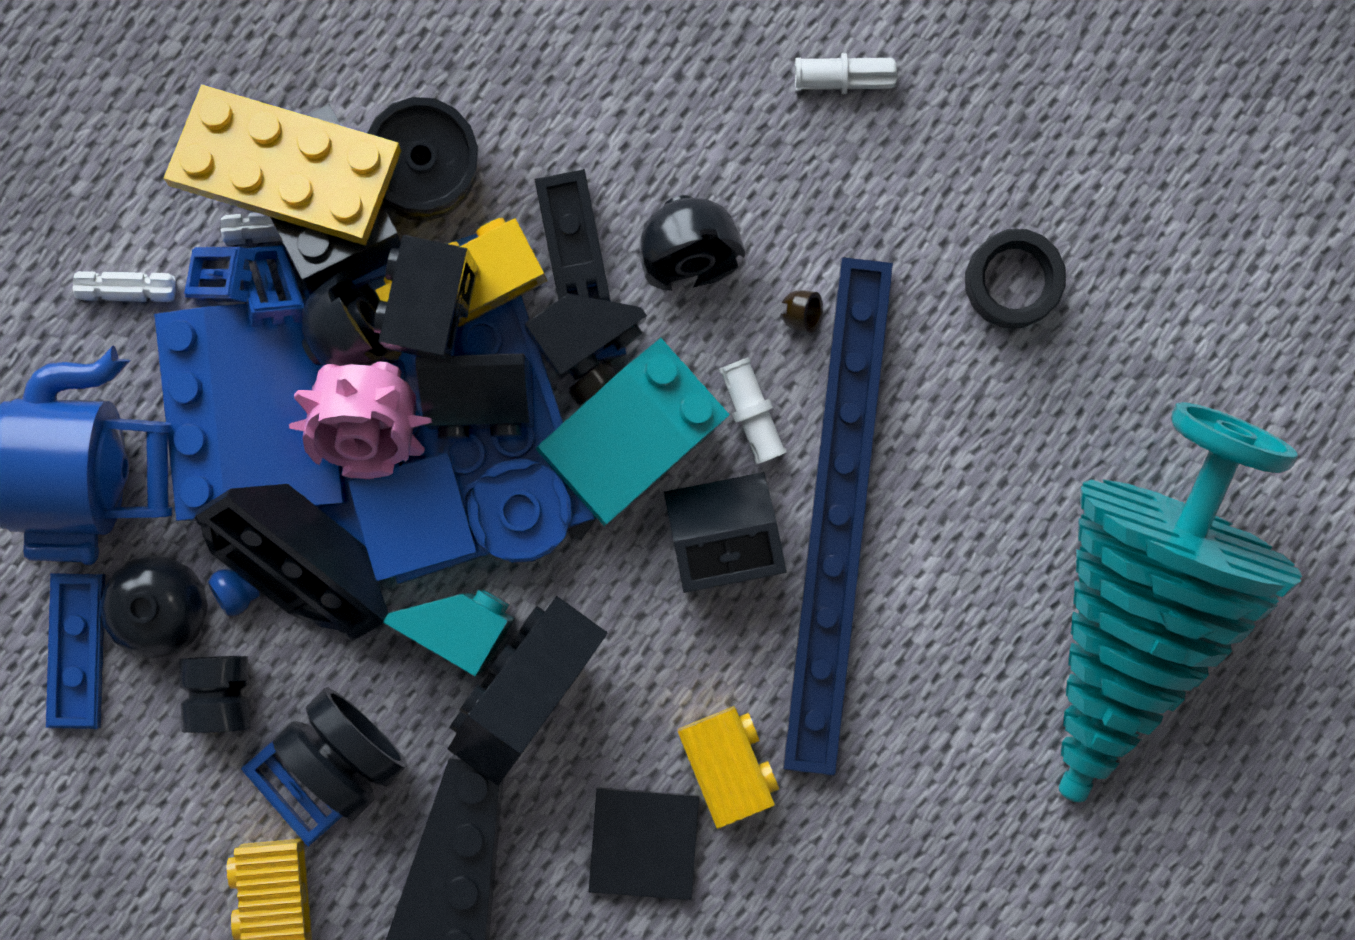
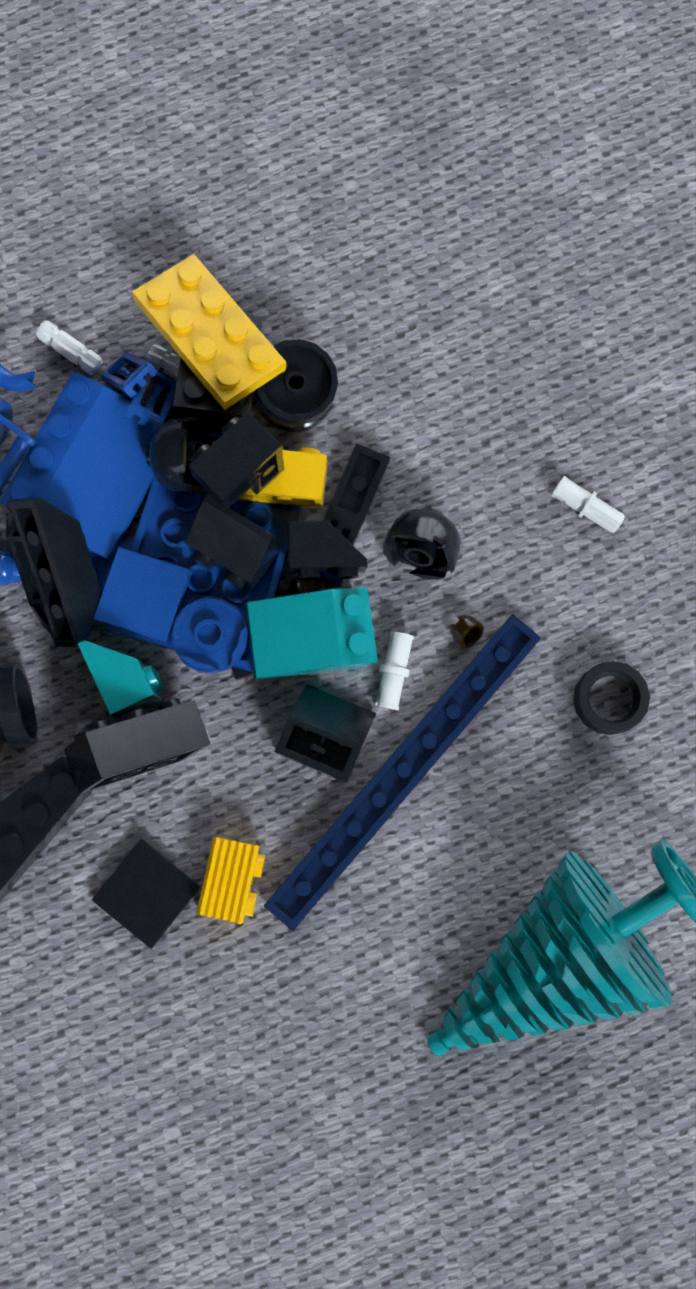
camera: 35 degrees right, 5 degrees down
(360, 419) = (149, 512): bright pink brick -> none

